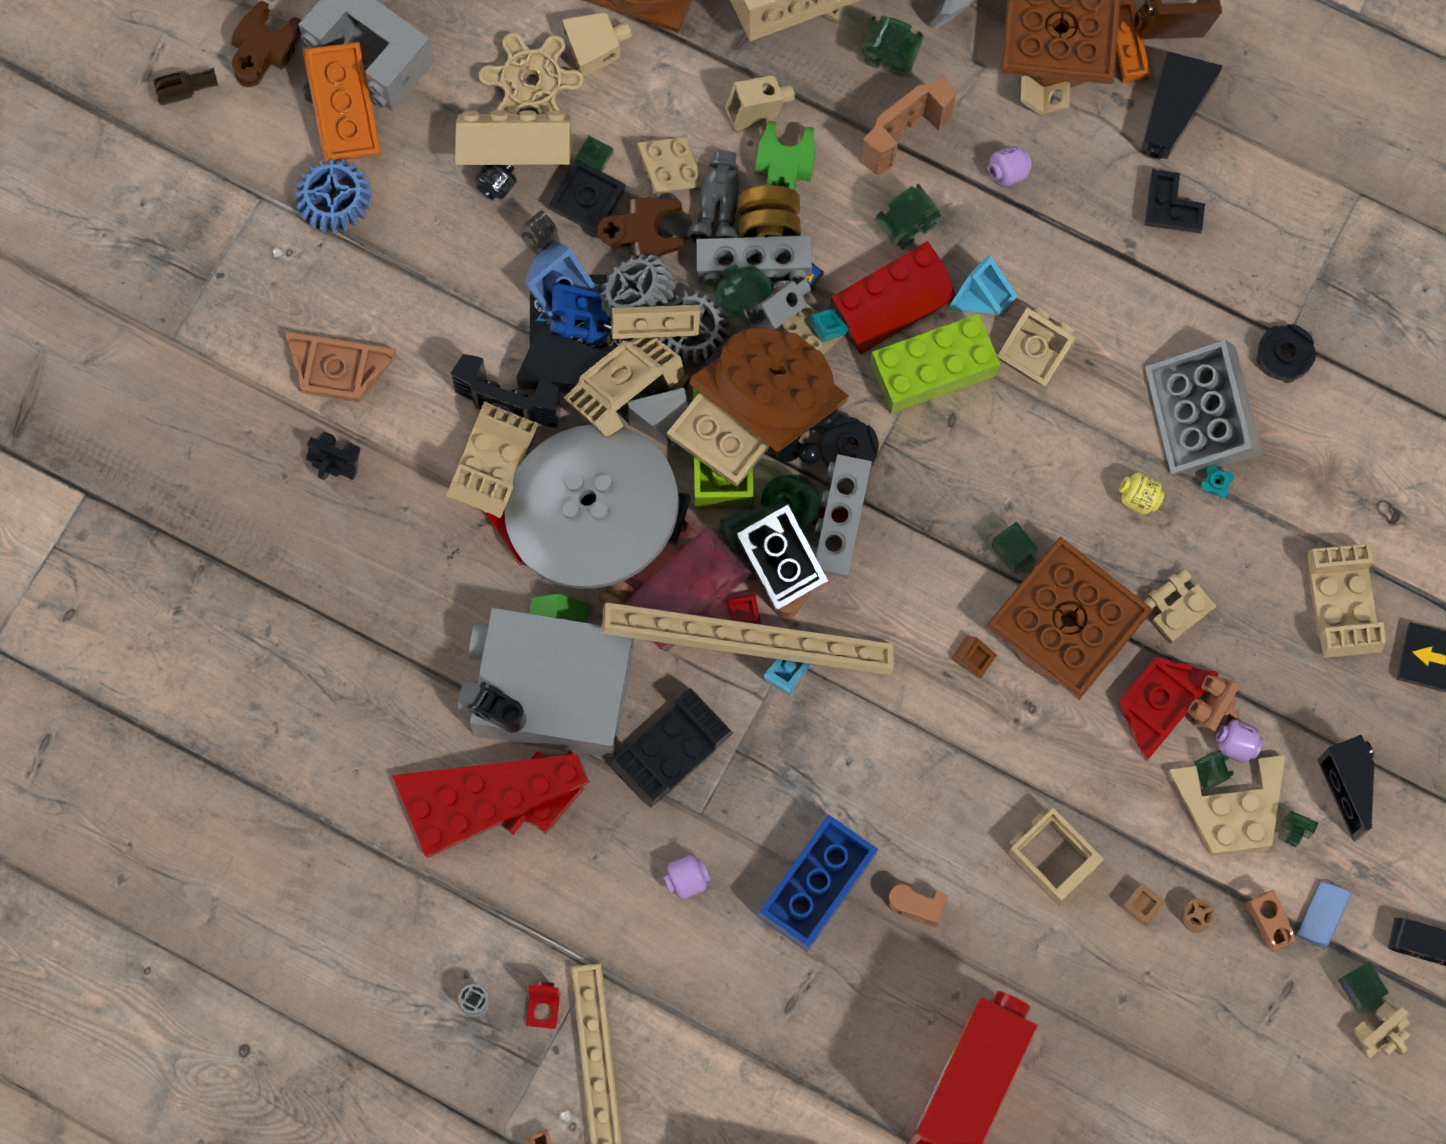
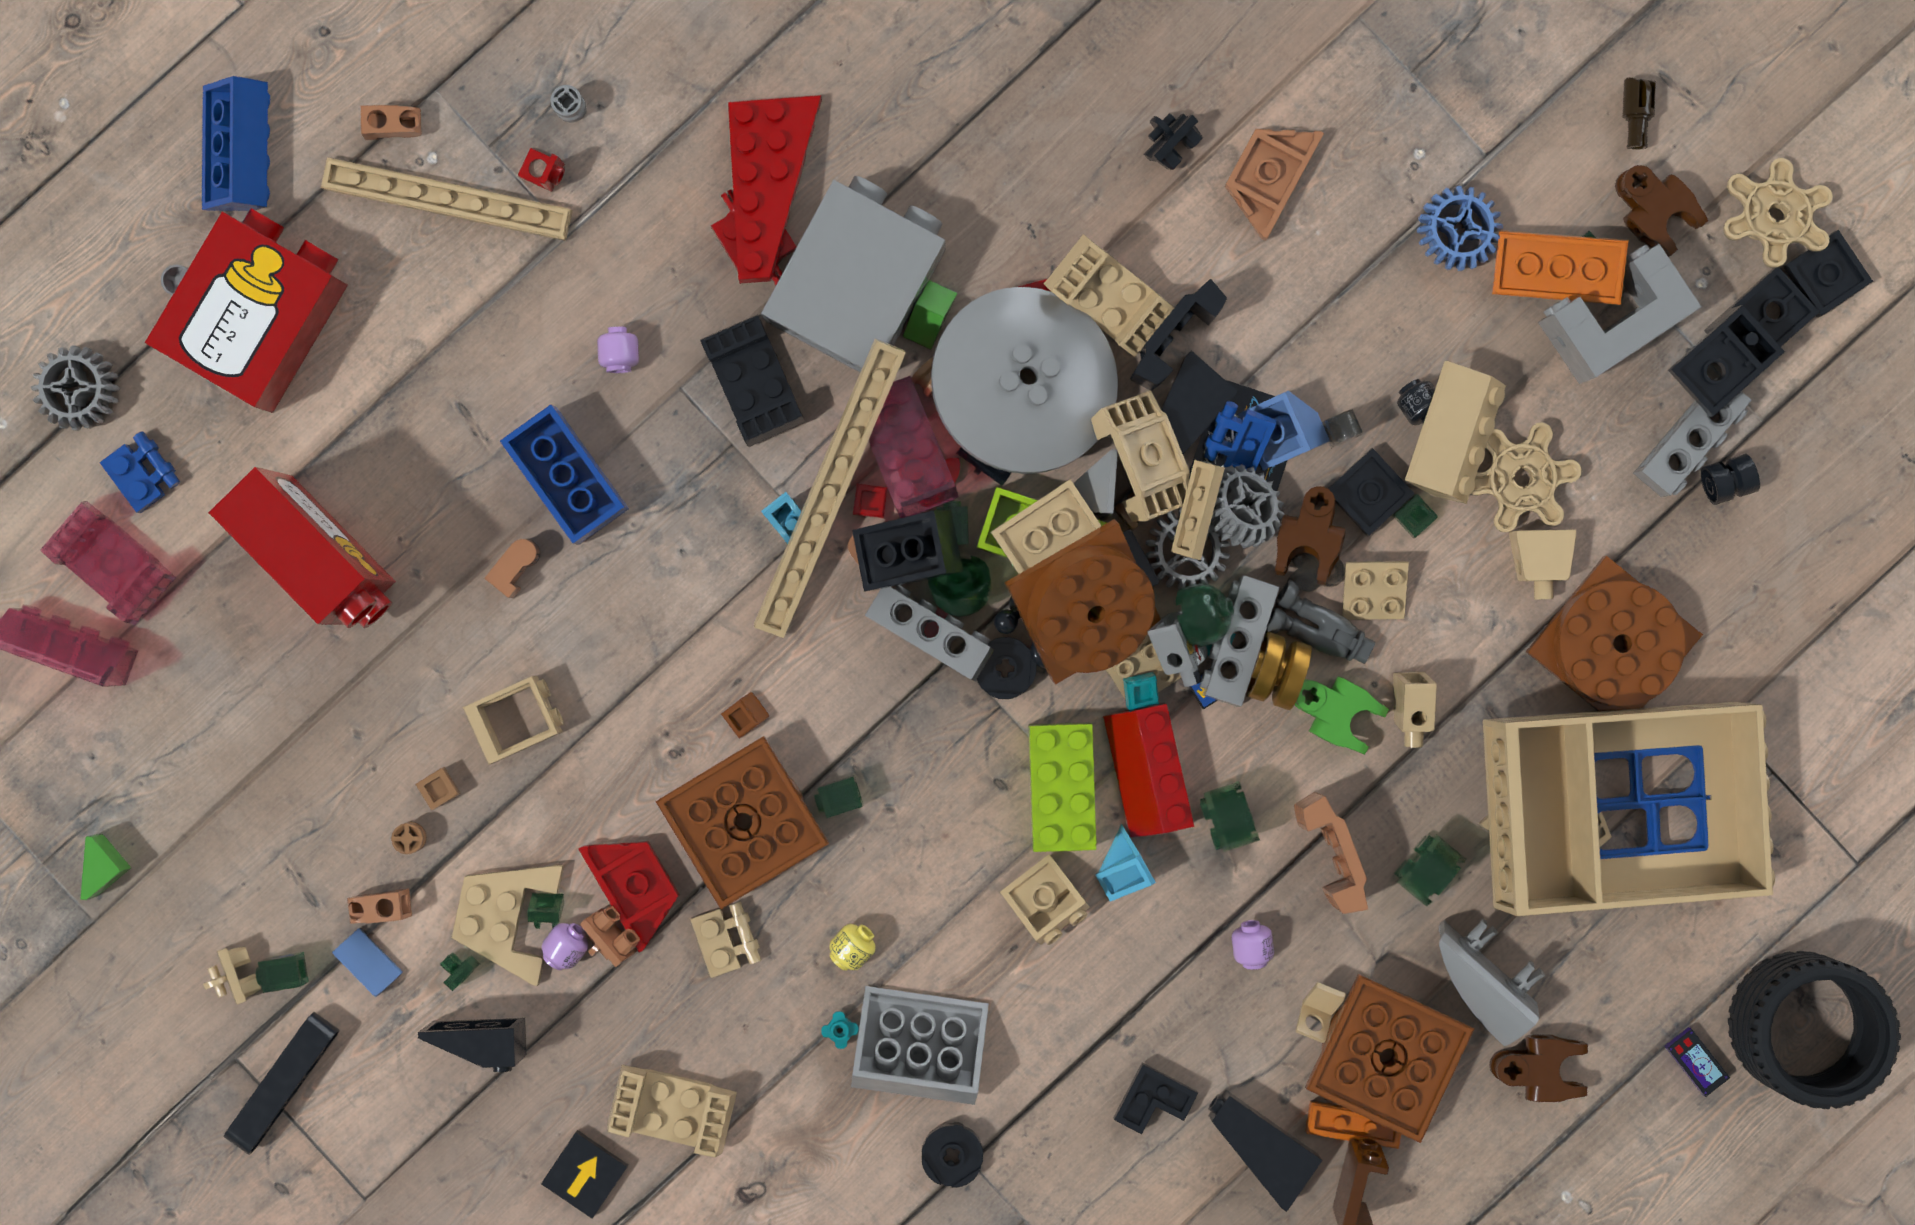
camera: 110 degrees right, 15 degrees up
(493, 705) = (836, 208): black piece -> none

